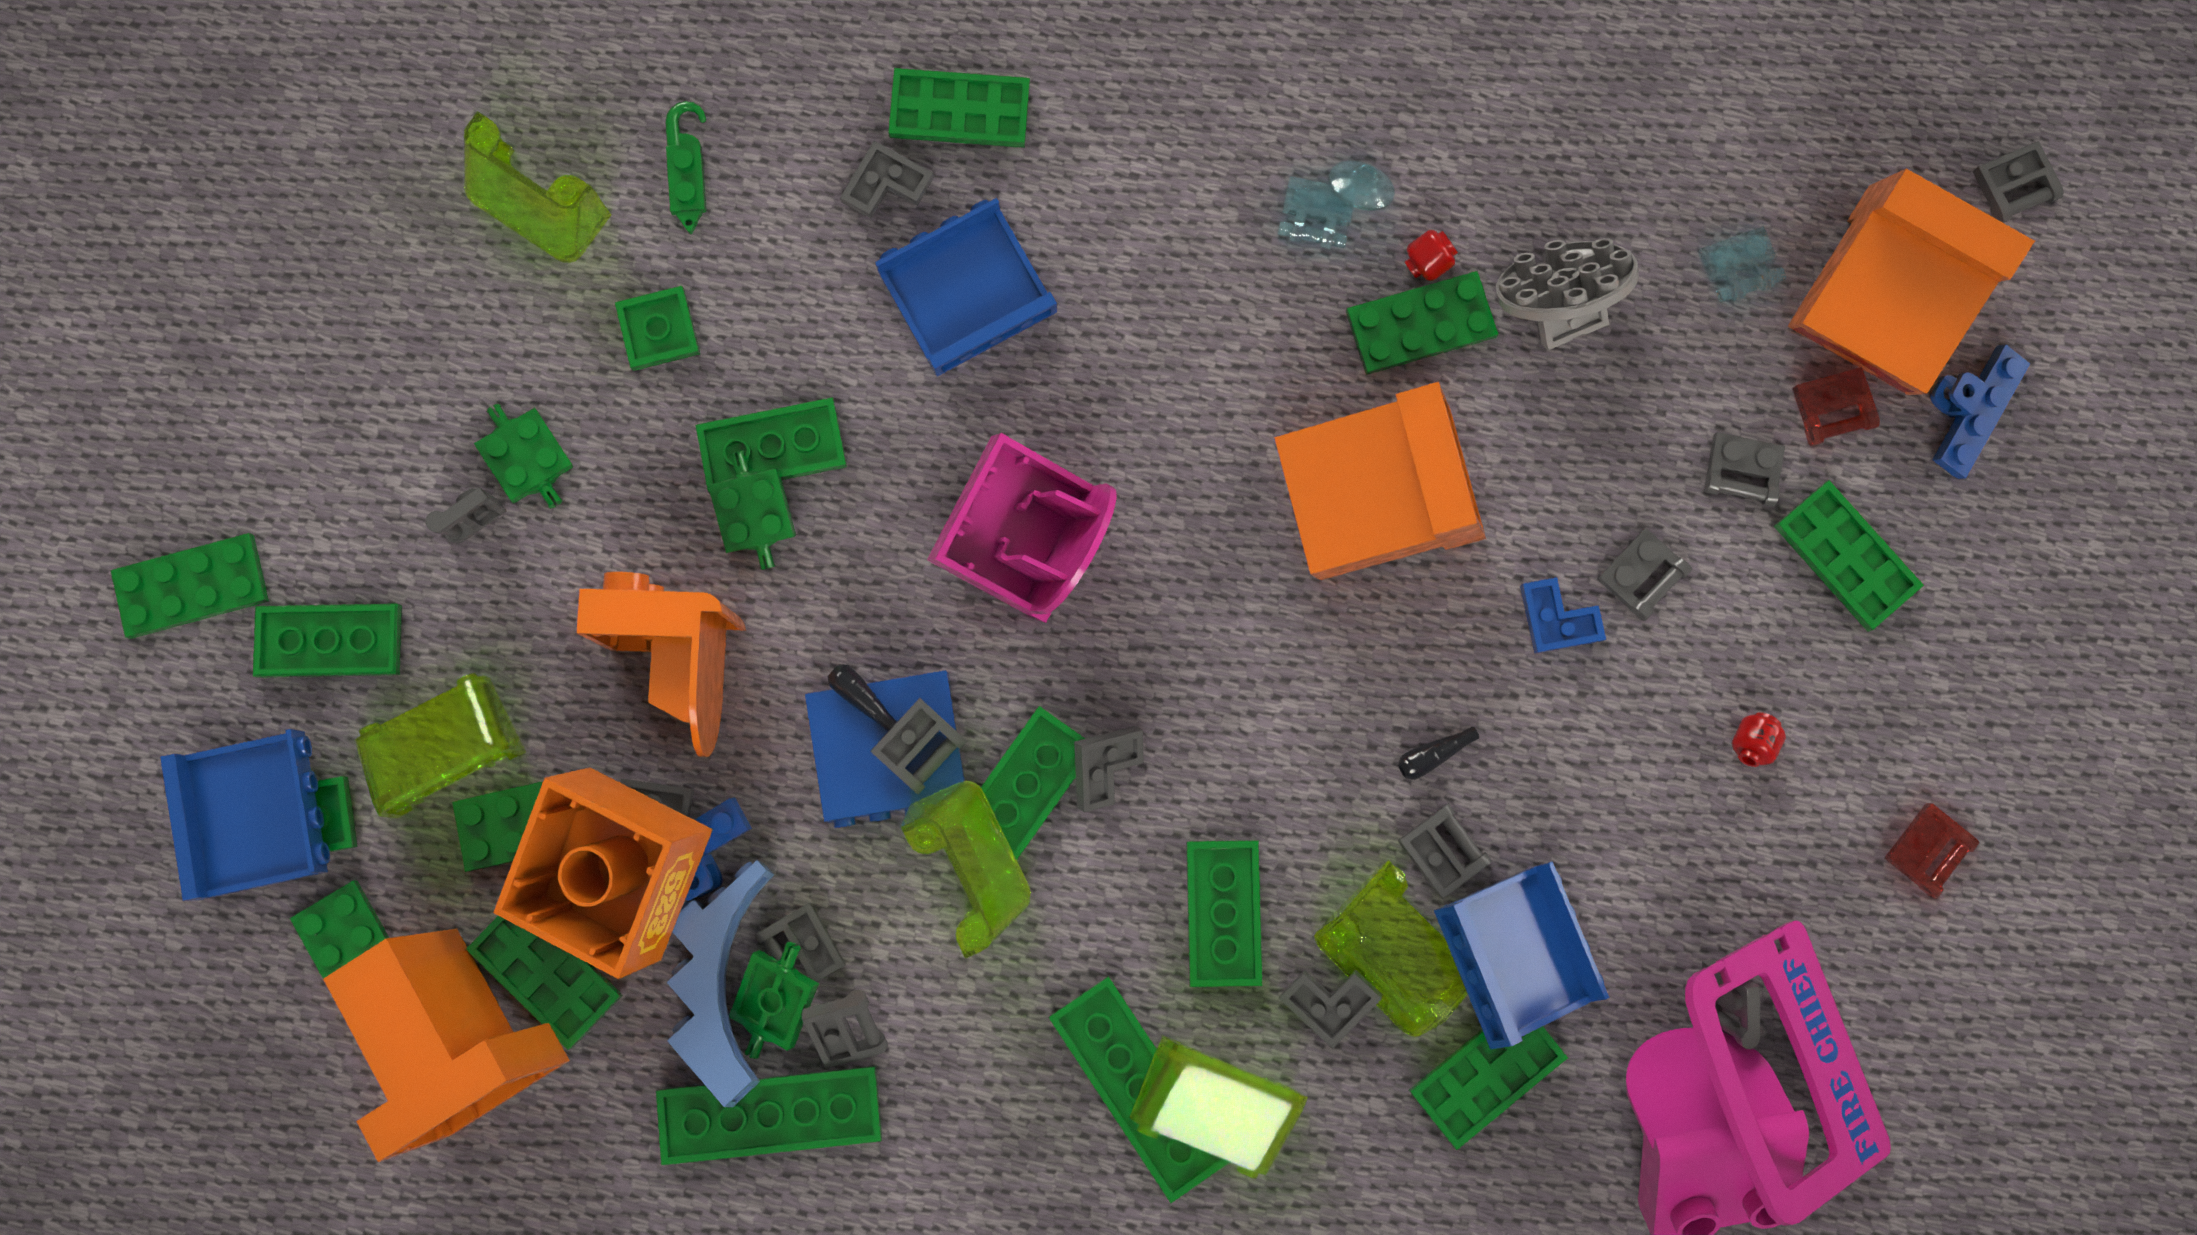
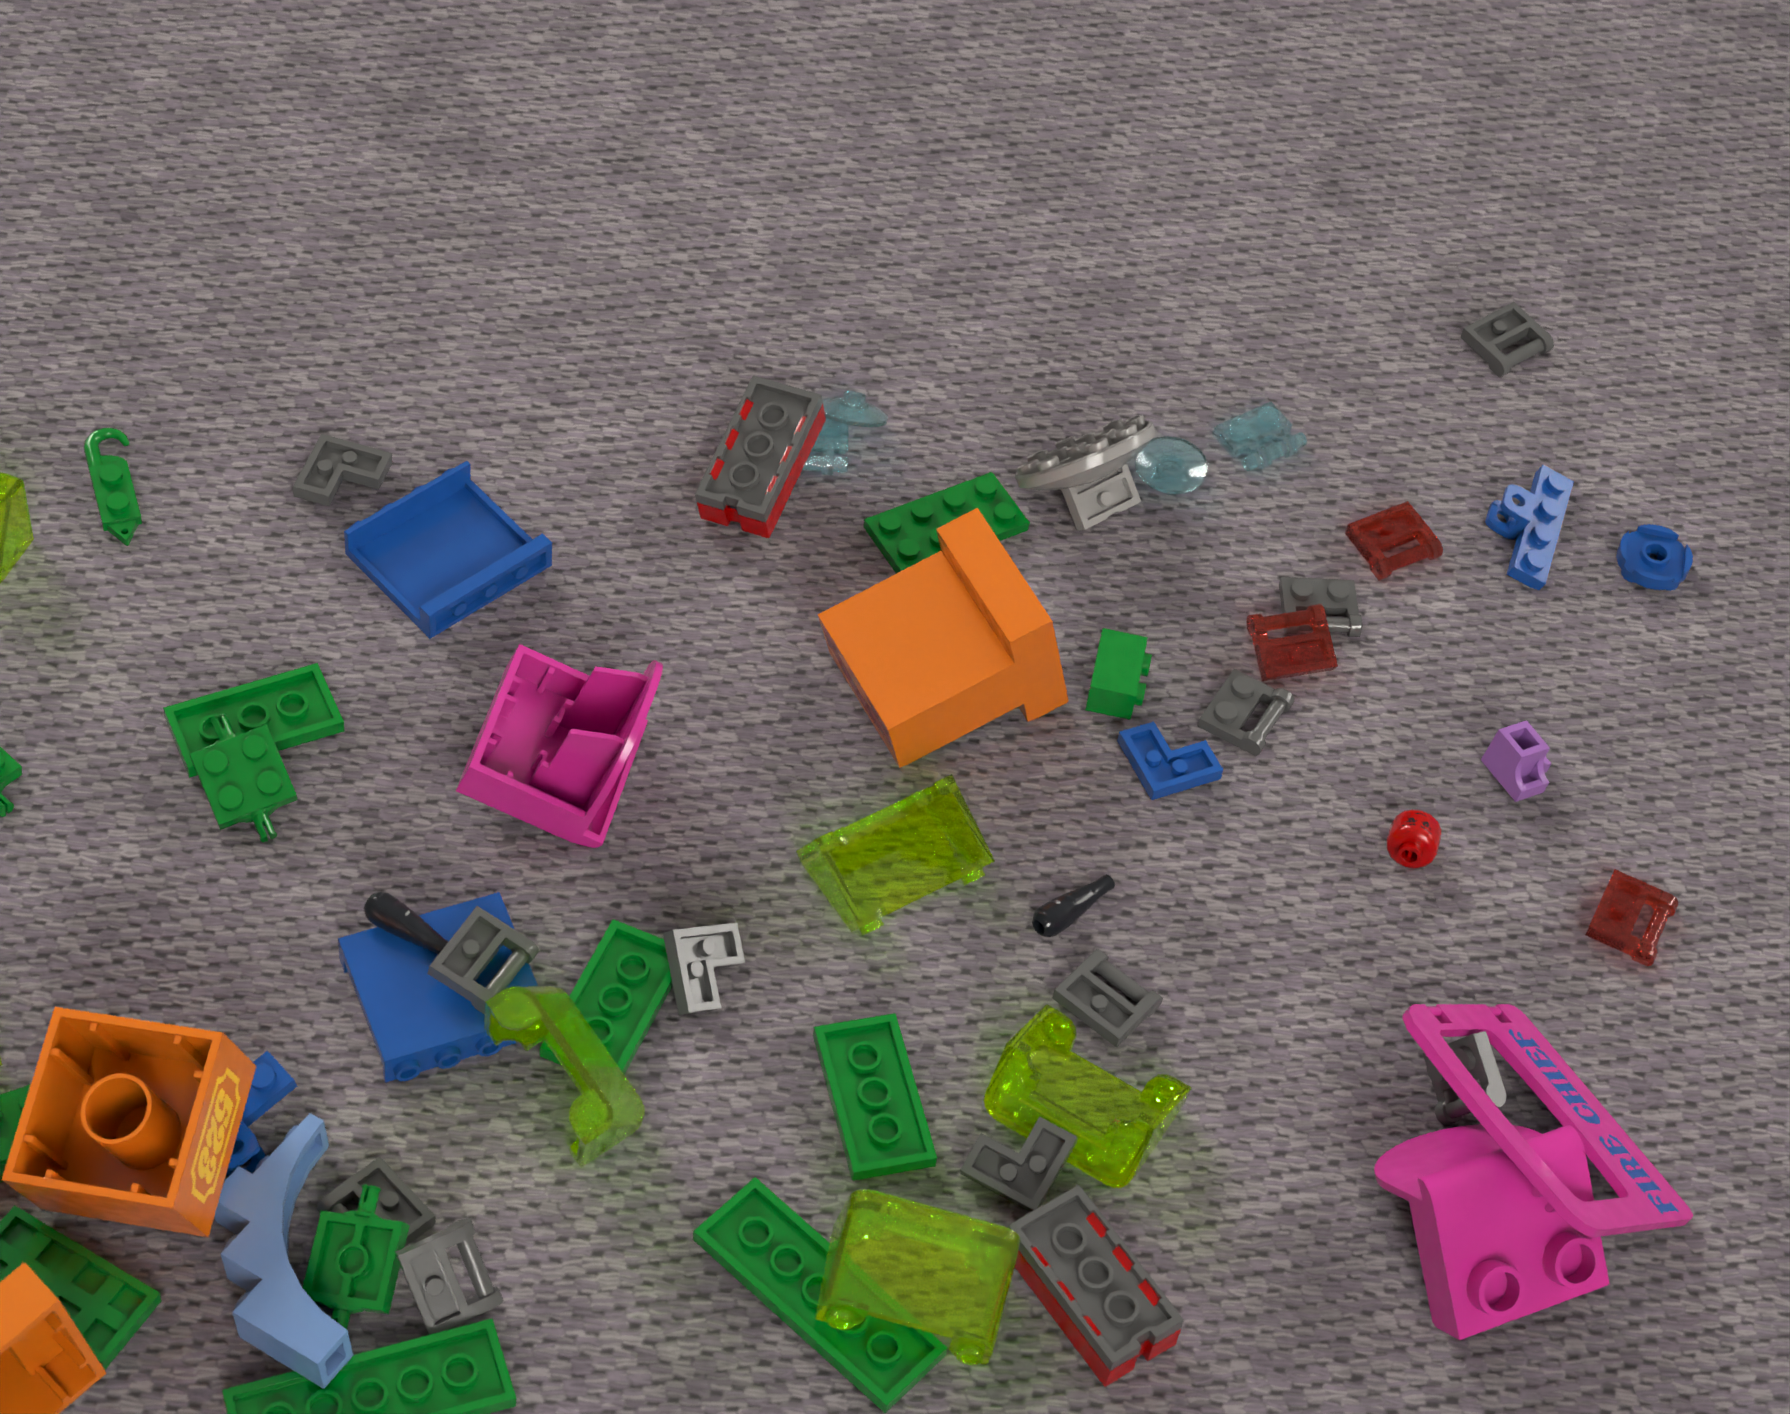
camera: 15 degrees left, 30 degrees down
(657, 328) = (104, 628): green plate -> none
(684, 641) = (167, 876): orange plate -> none
(959, 107) = (408, 399): green plate -> none
(1264, 234) = (760, 456): none -> dark grey piece
(1292, 680) = (897, 855): none -> clear neon green windscreen
(1361, 1131) = (1094, 1286): none -> dark grey piece
(1430, 255) = (940, 462): red head -> none
(1483, 1082) = (1220, 1211): green plate -> none
(1521, 954) = (1222, 1071): blue panel -> none
(1537, 522) = (1117, 674): none -> green brick
(1664, 290) = (1176, 455): none -> clear light blue dish
(1707, 523) = (1292, 654): none -> clear red plate
(1848, 556) = (1451, 665): green plate -> none
(1878, 676) = (1518, 760): none -> medium lavender brick
(1908, 280) = (1424, 406): orange piece -> none
(2066, 478) = (1653, 574): none -> blue plate

